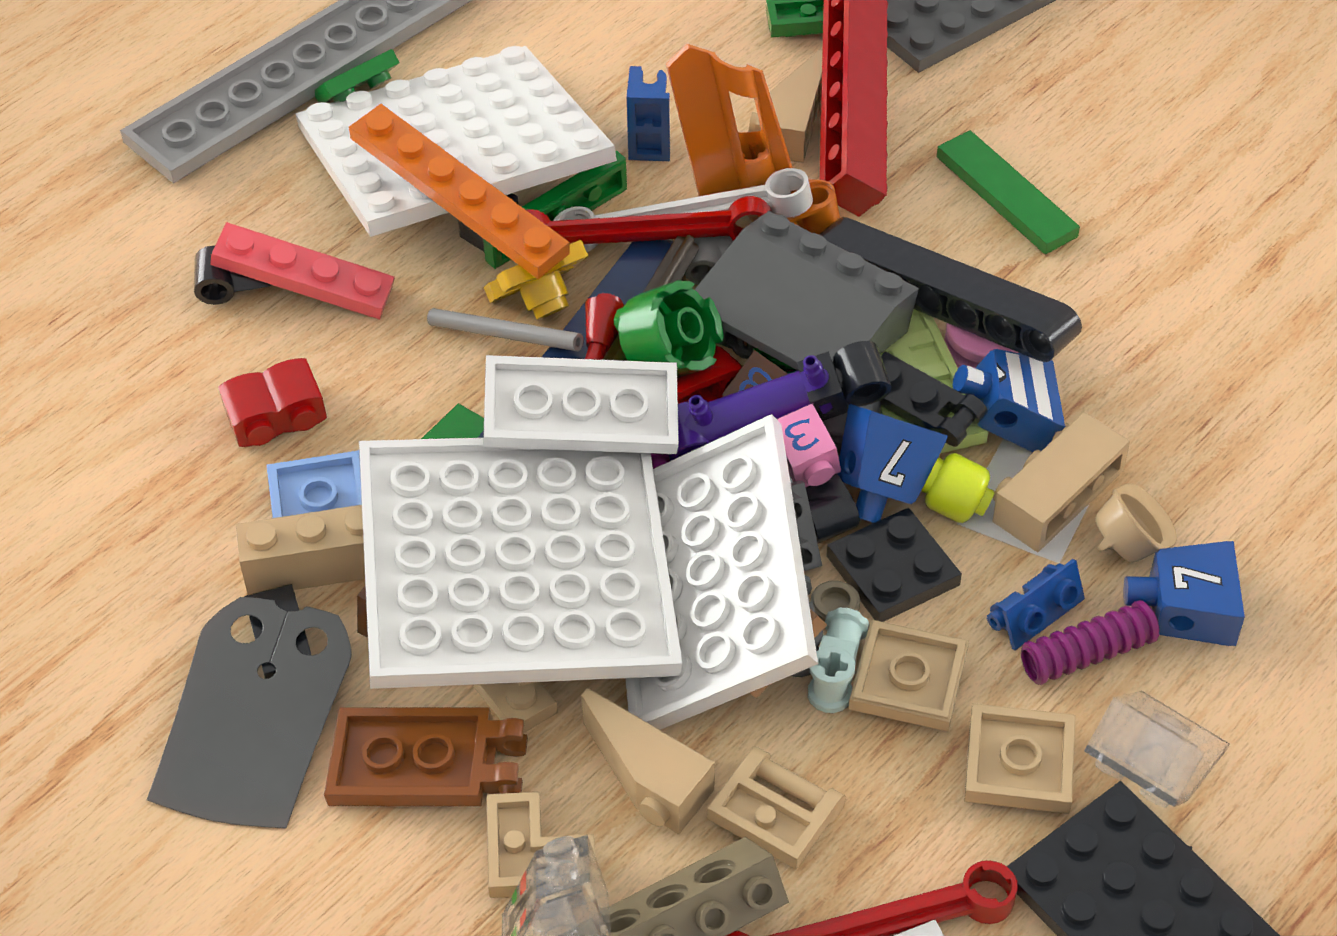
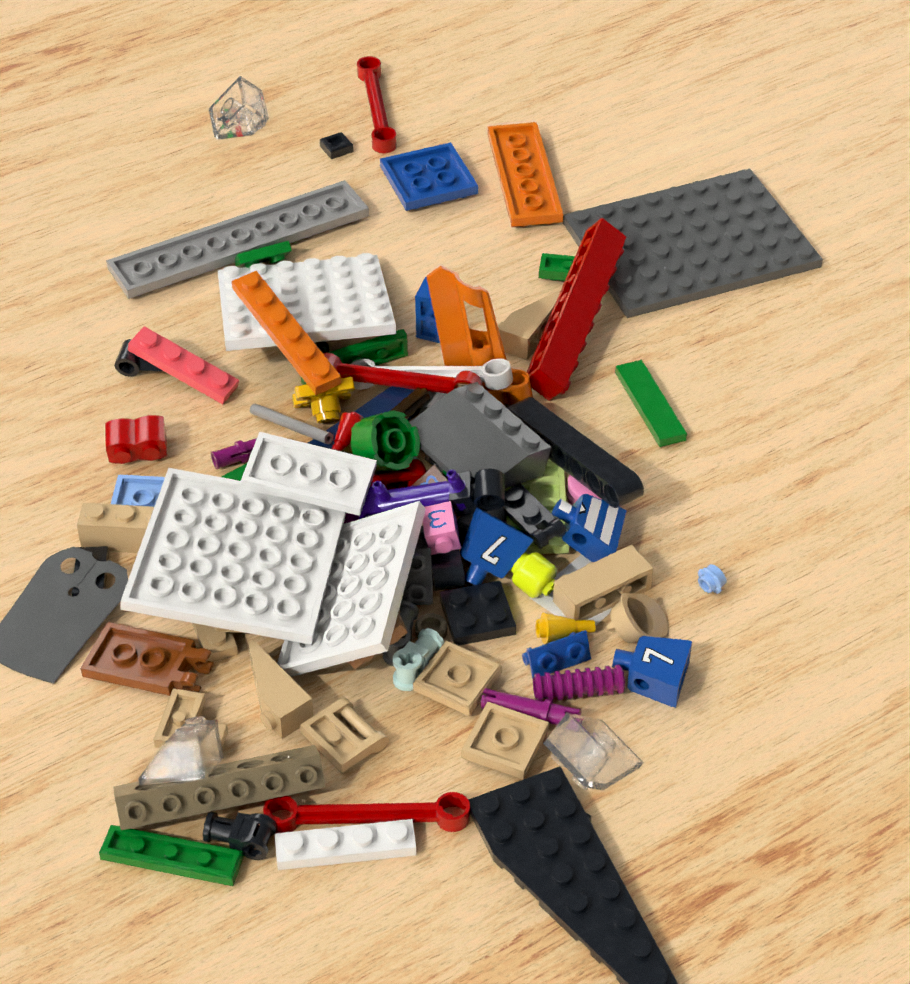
camera: 15 degrees right, 5 degrees down
(440, 388) = (239, 452): none -> magenta pin
(1017, 563) = (556, 627): none -> yellow cone
(1057, 698) = (542, 710): none -> magenta pin
(1208, 438) = (711, 579): none -> light blue plate

